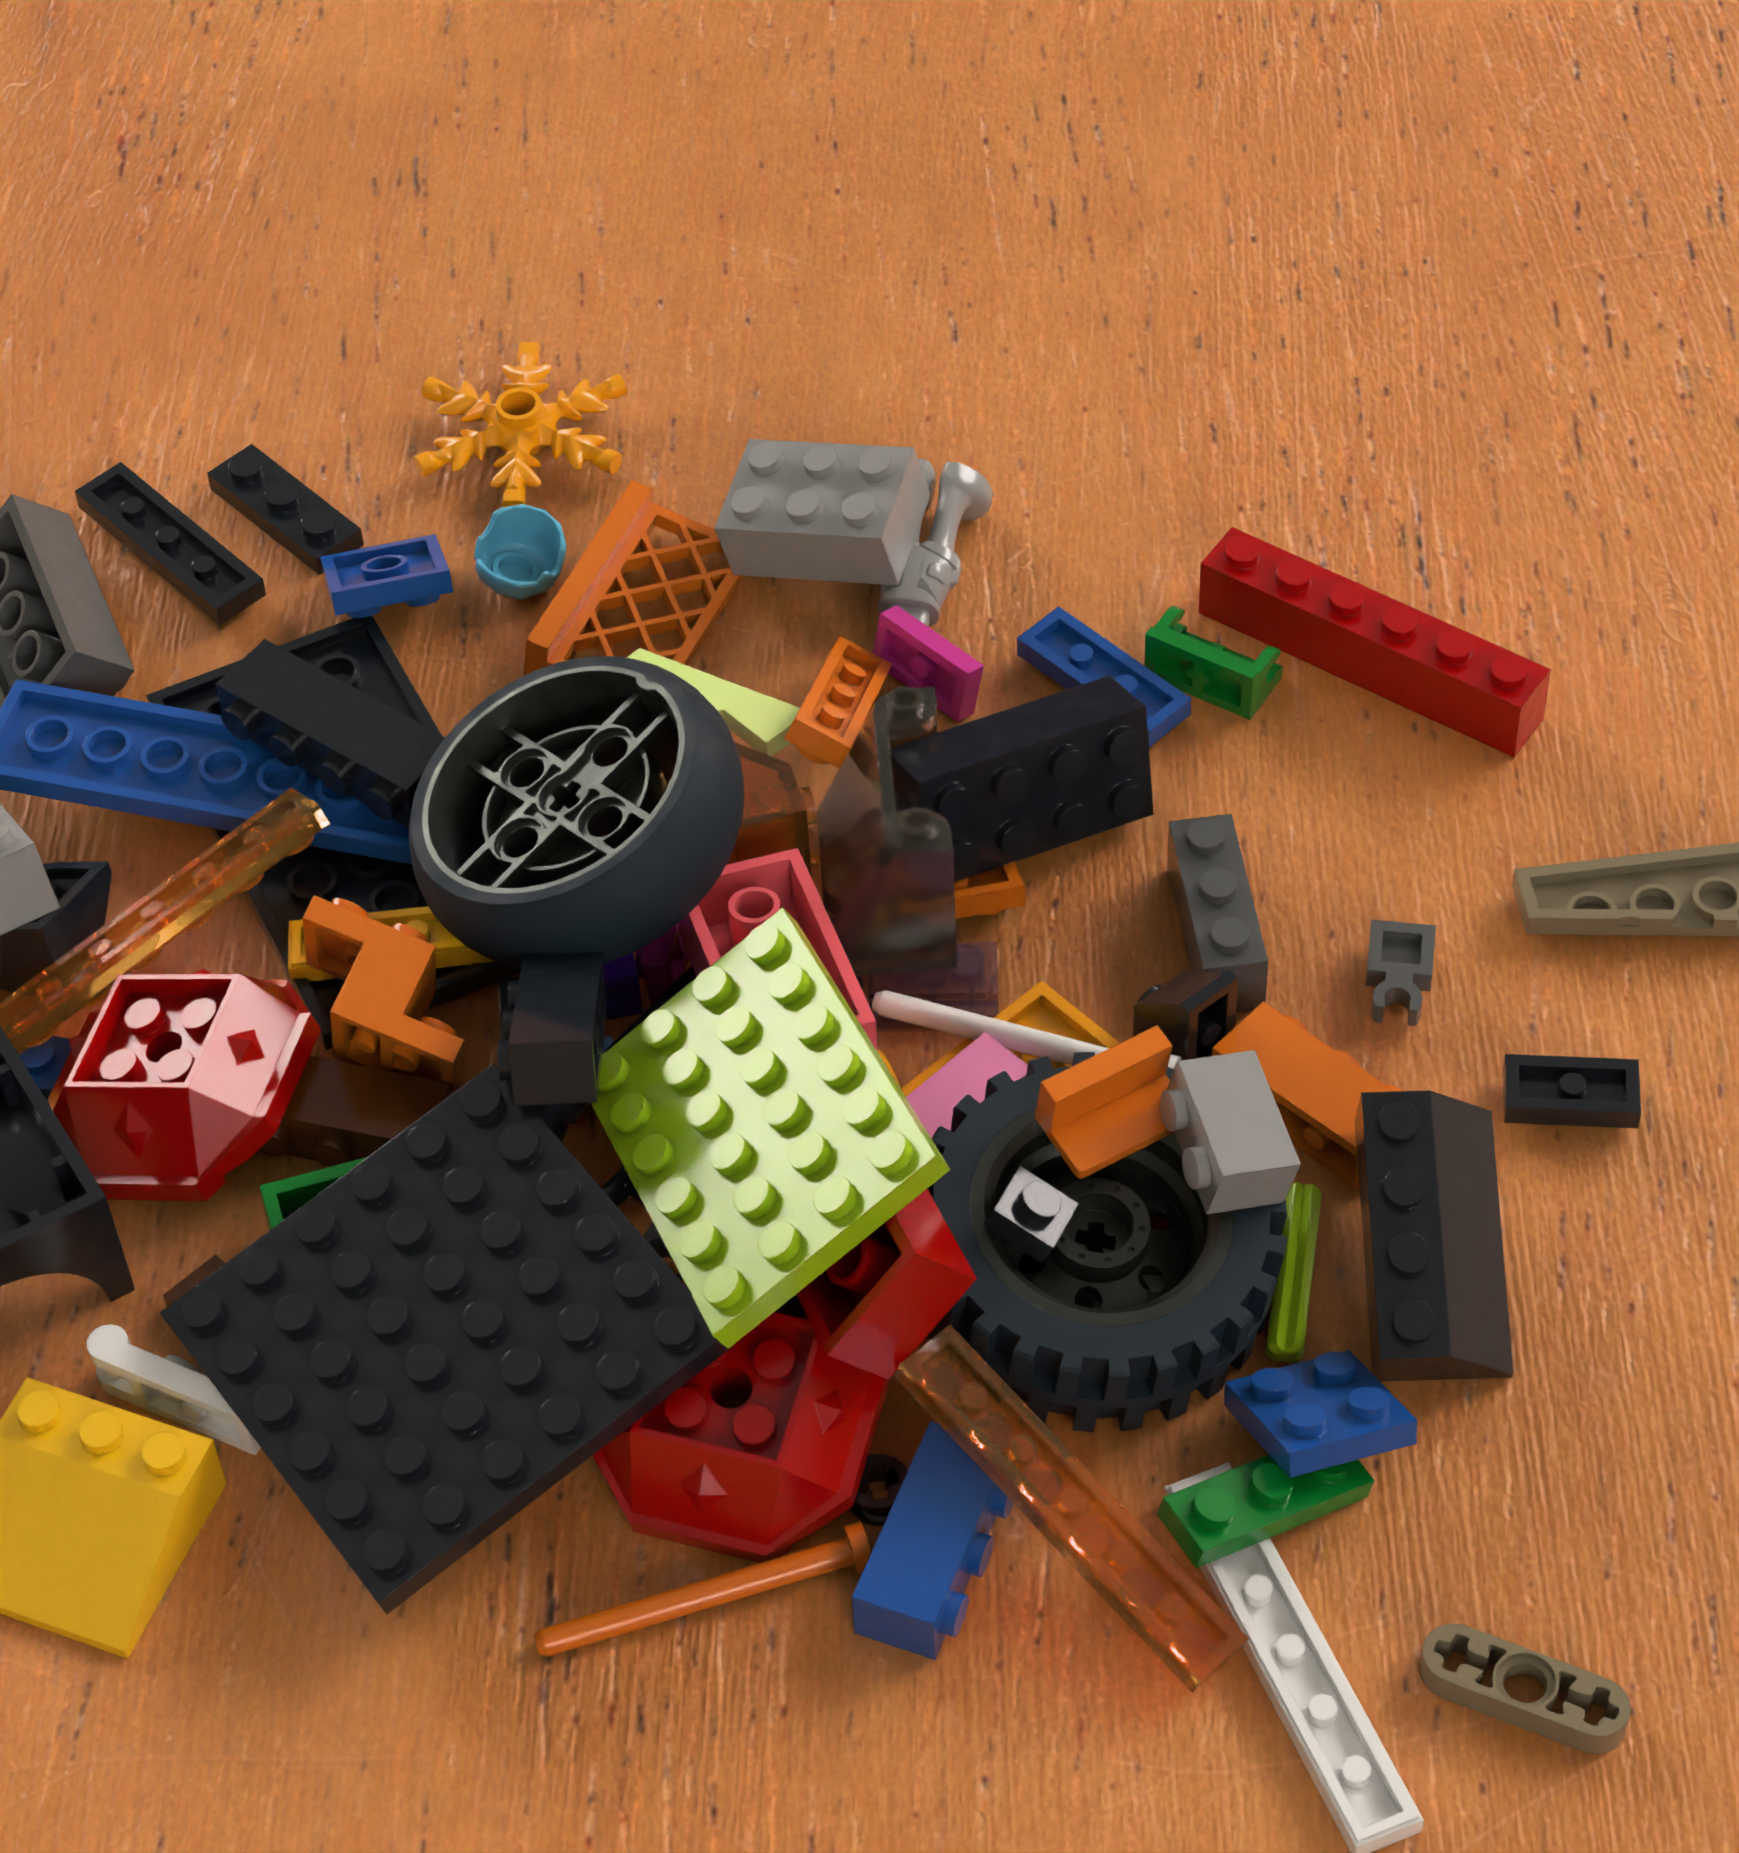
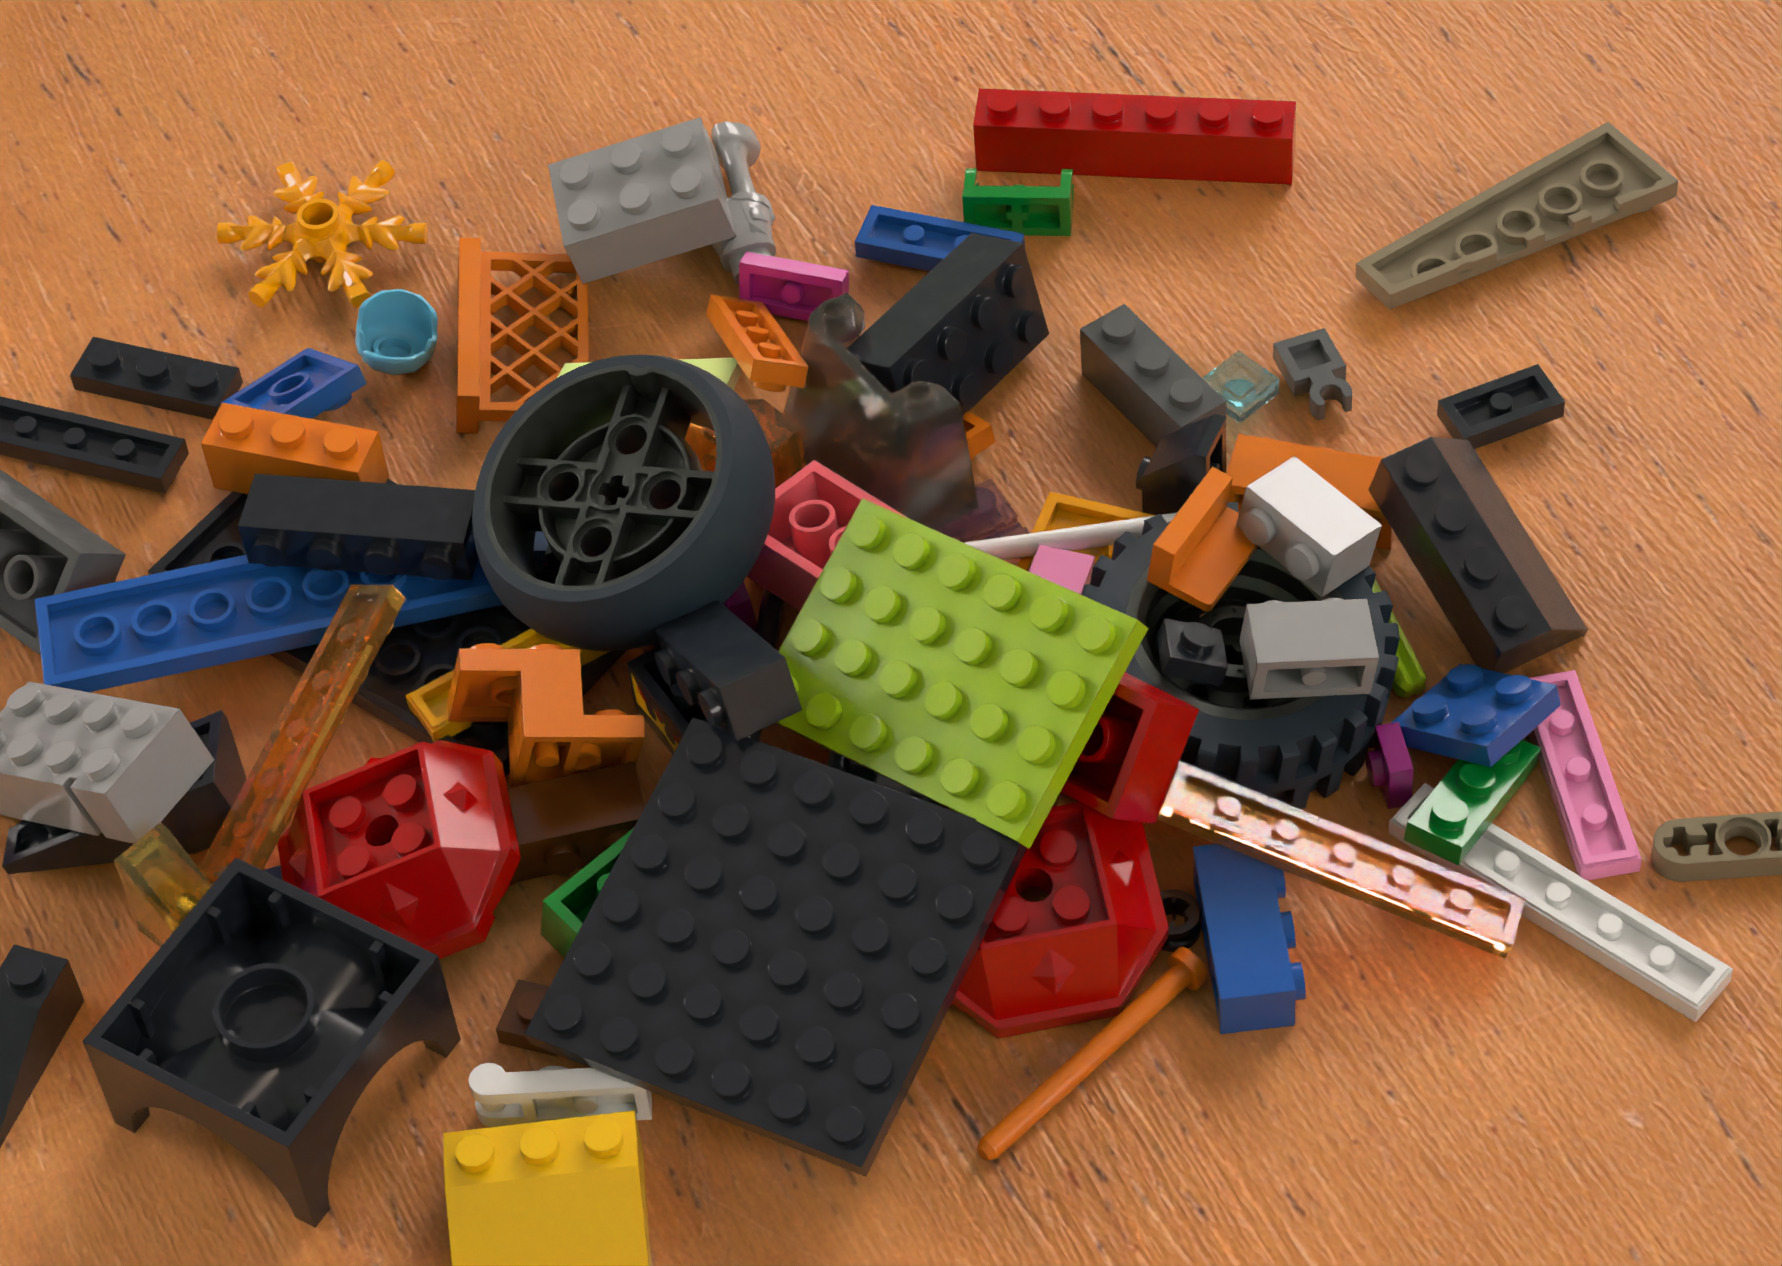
camera: 25 degrees left, 0 degrees up
(333, 633) = (272, 443): none -> orange brick
(1148, 1263) = (1308, 648): none -> light grey brick
(1200, 1426) = (1390, 765): none -> magenta plate
(1310, 951) = (1243, 385): none -> clear light blue plate
(1399, 1536) = (1584, 786): none -> bright pink tile

